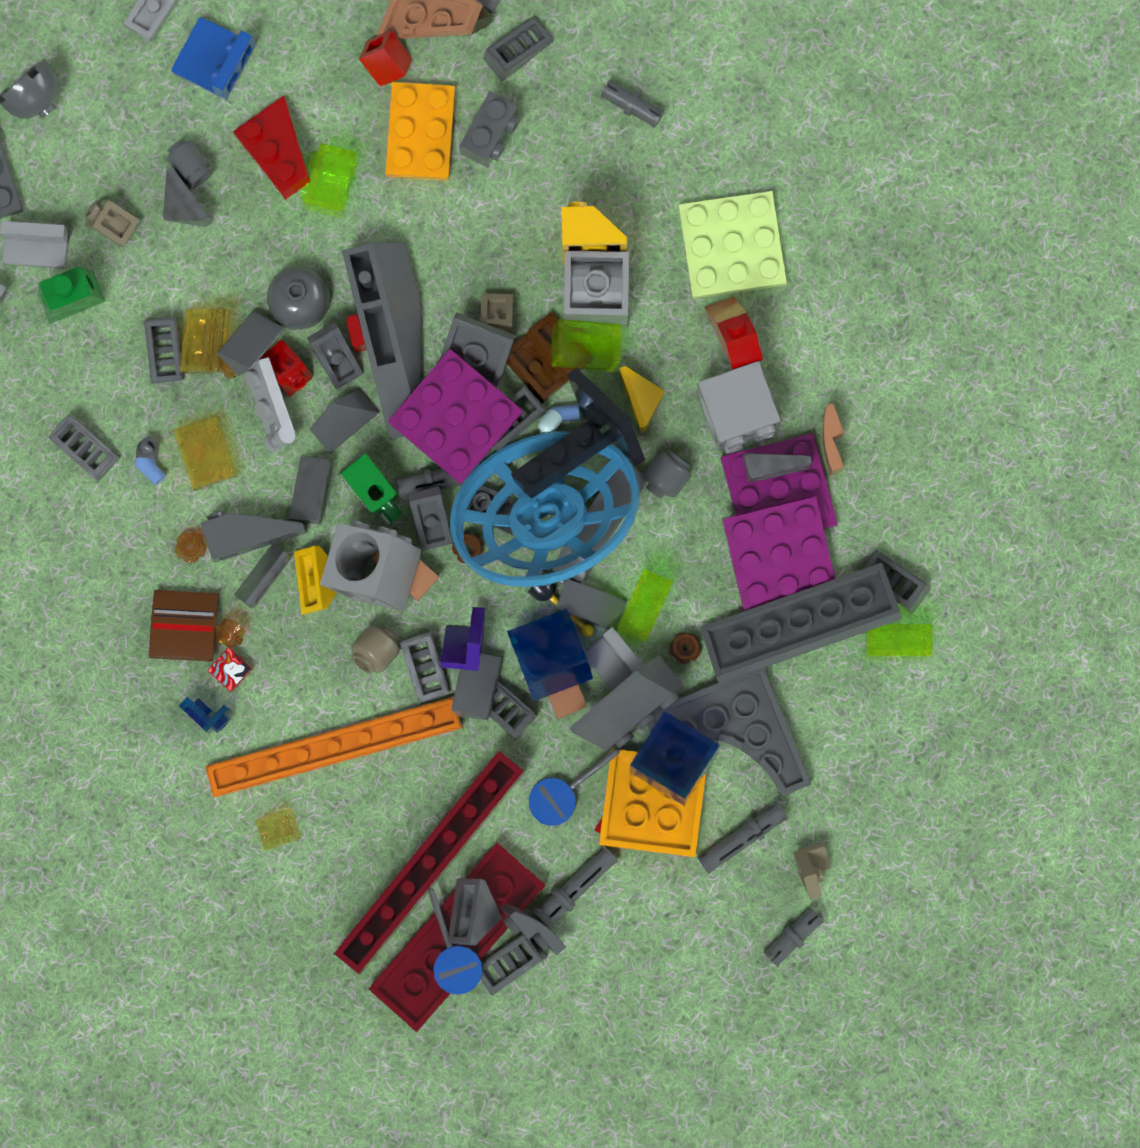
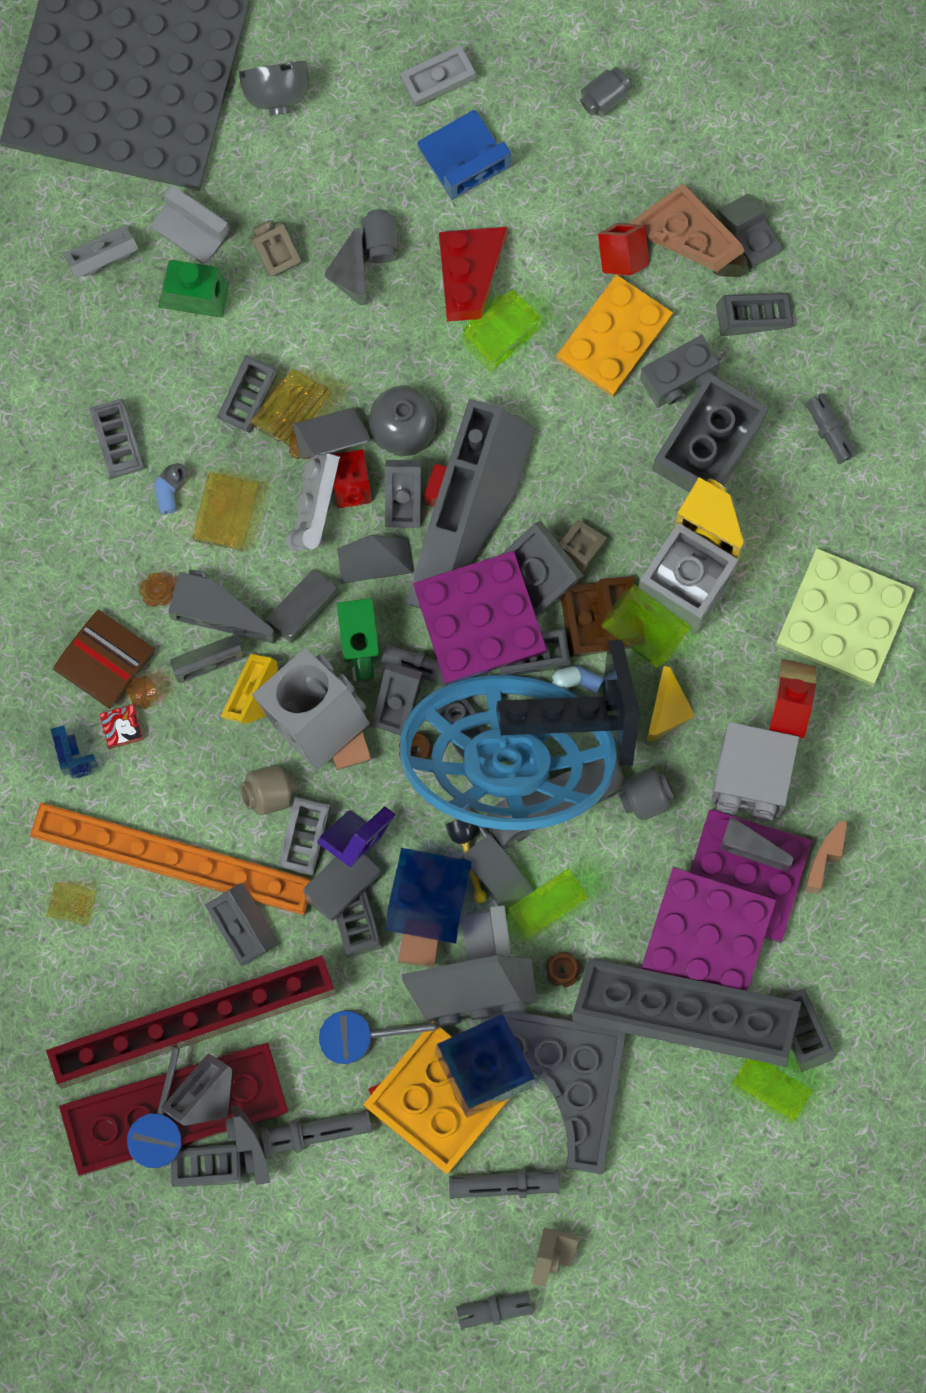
camera: 30 degrees right, 5 degrees down
(419, 764) = (242, 924): none -> dark grey slope
(544, 167) = (710, 435): none -> dark grey brick

